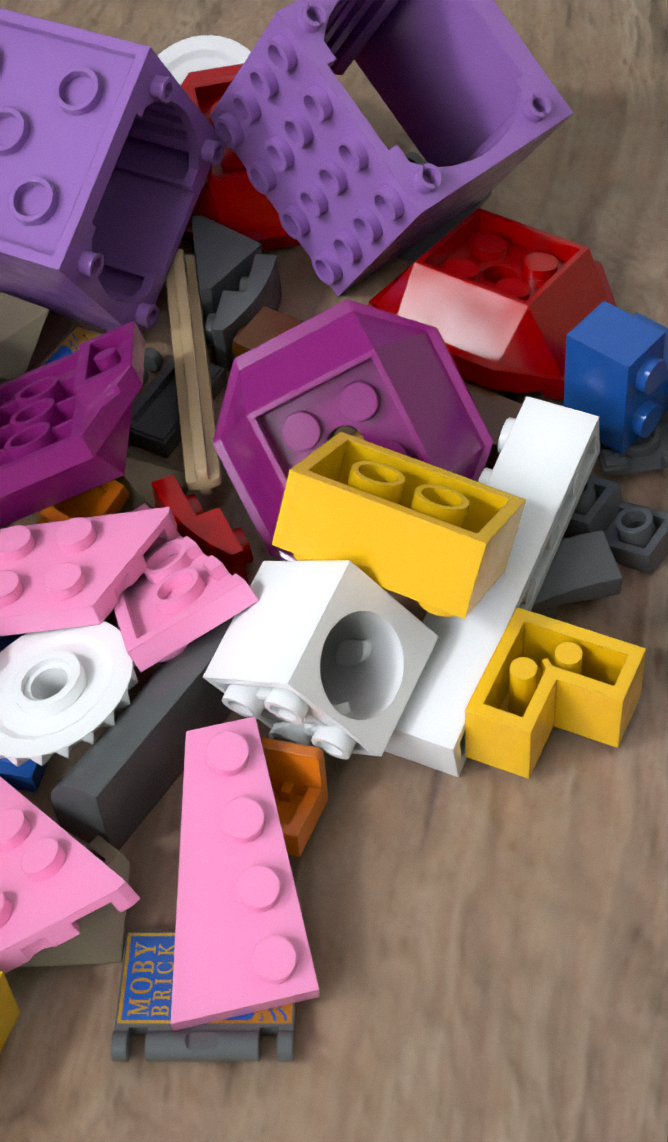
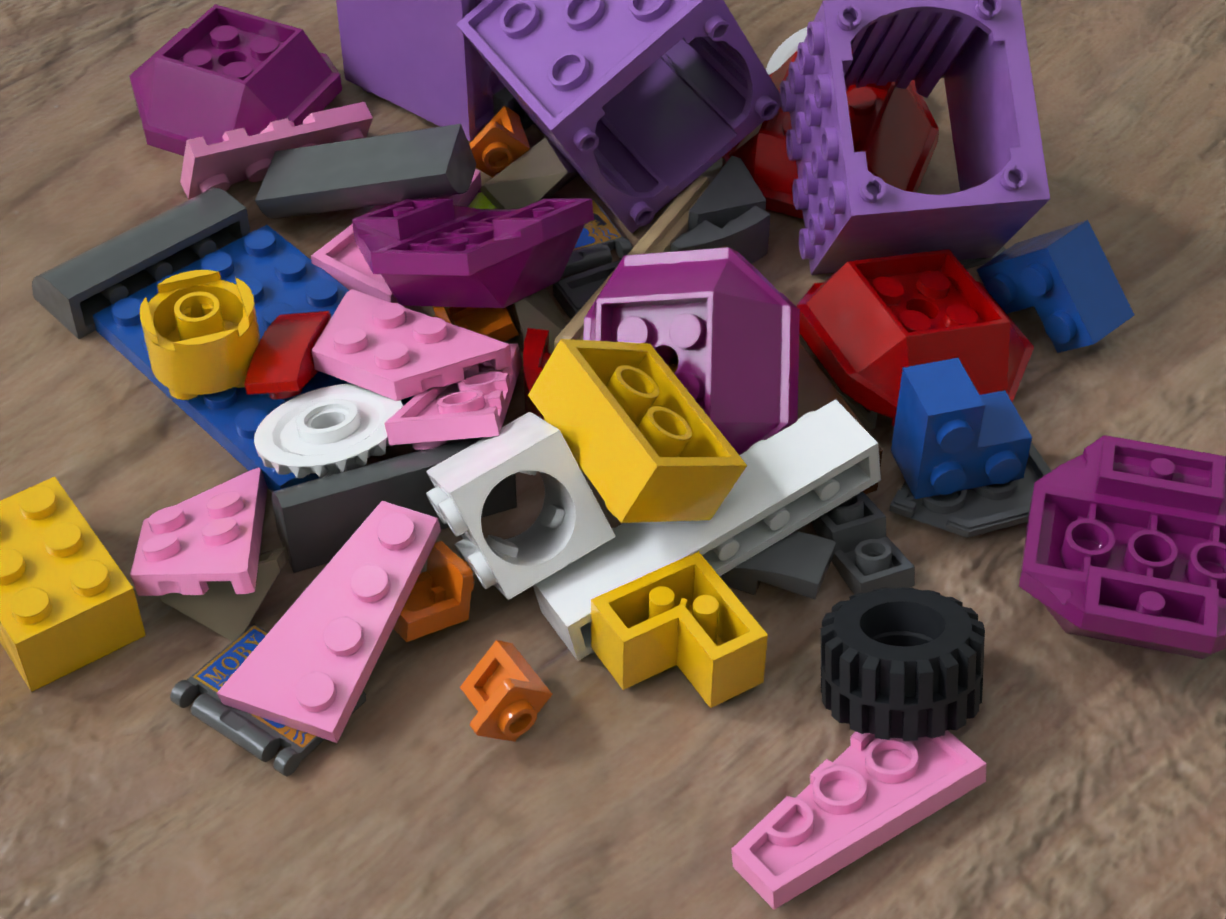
camera: 30 degrees right, 5 degrees down
(439, 848) = (504, 693): none -> orange bracket
(582, 186) = (1065, 282): none -> blue brick

